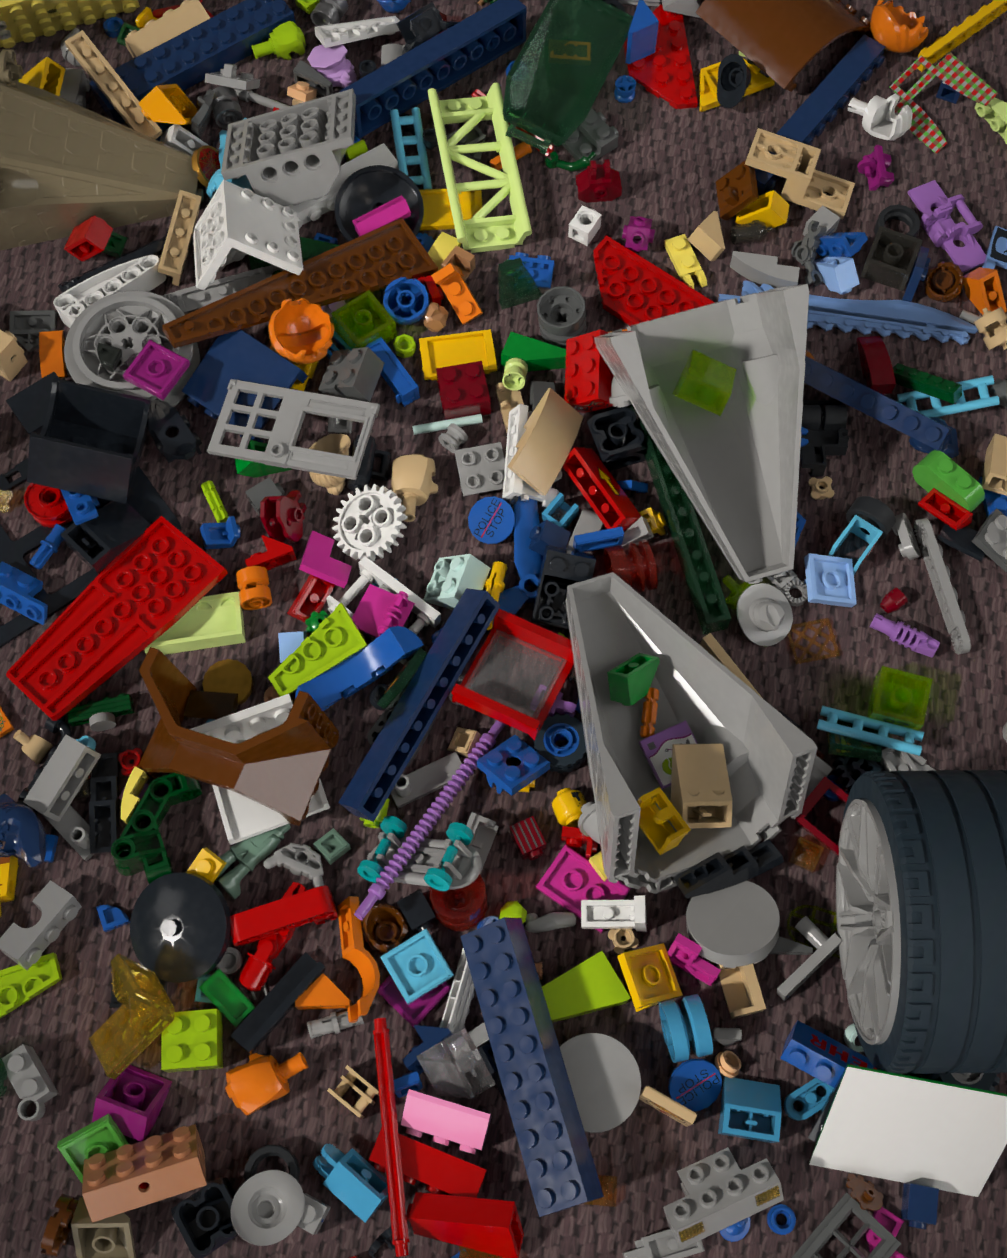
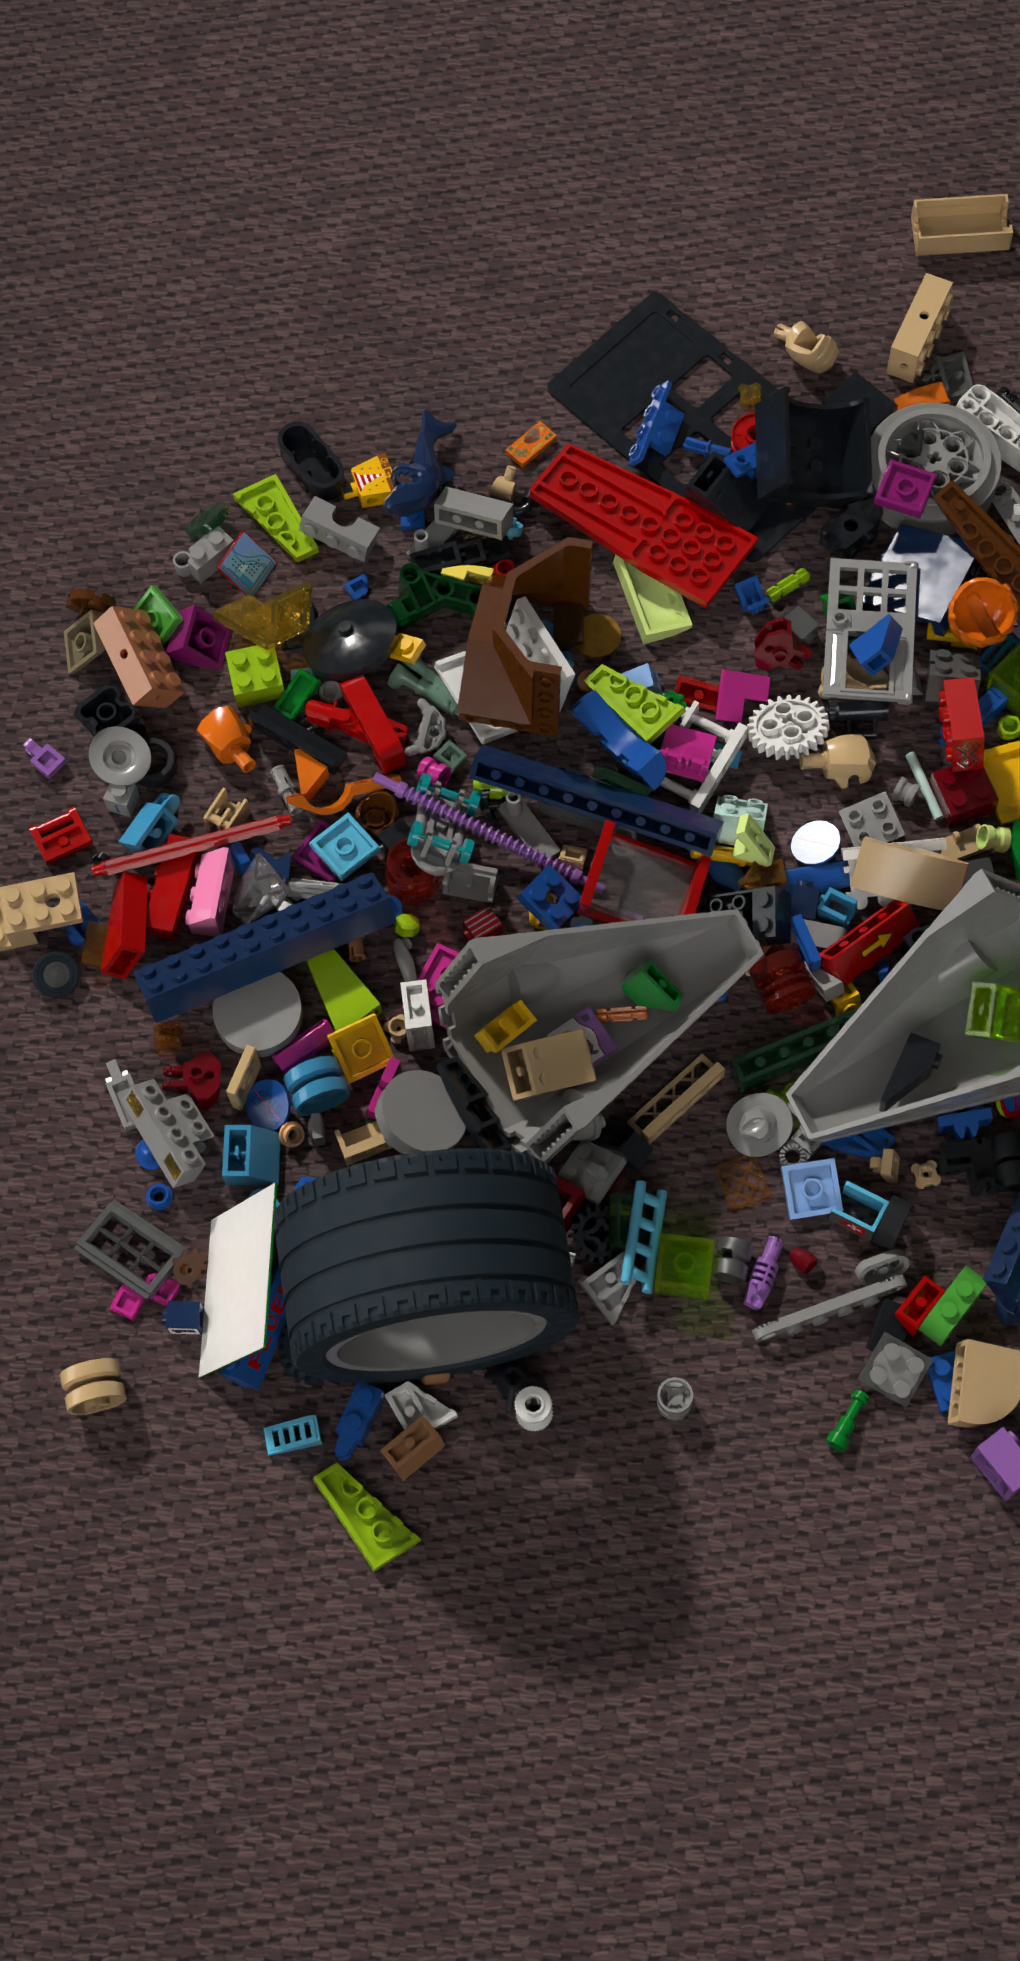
camera: 85 degrees right, 0 degrees up
(54, 1034) = (246, 564): none -> piece
(102, 721) = (538, 537): light grey tile -> none
(118, 706) = (547, 526): dark green piece -> none
(254, 588) = (697, 637): orange wheel -> none
(276, 554) = (735, 647): red slope -> none
(317, 421) = (877, 645): none -> blue slope
(347, 865) = (438, 772): none -> dark pink wheel
(402, 815) = (488, 808): none -> black piece
(410, 367) = (962, 724): none -> red brick
(491, 570) = (752, 843): none -> yellowish green slope
(520, 565) = (762, 876): none -> clear orange slope
(630, 1036) = (303, 1046): none -> dark pink piece
(659, 1162) = (199, 1078): none -> dark red hinge
(742, 467) = (913, 1068): none -> black slope
(812, 515) = (887, 1165): none -> tan tile
(902, 661) = (732, 1260): none -> flat silver wheel

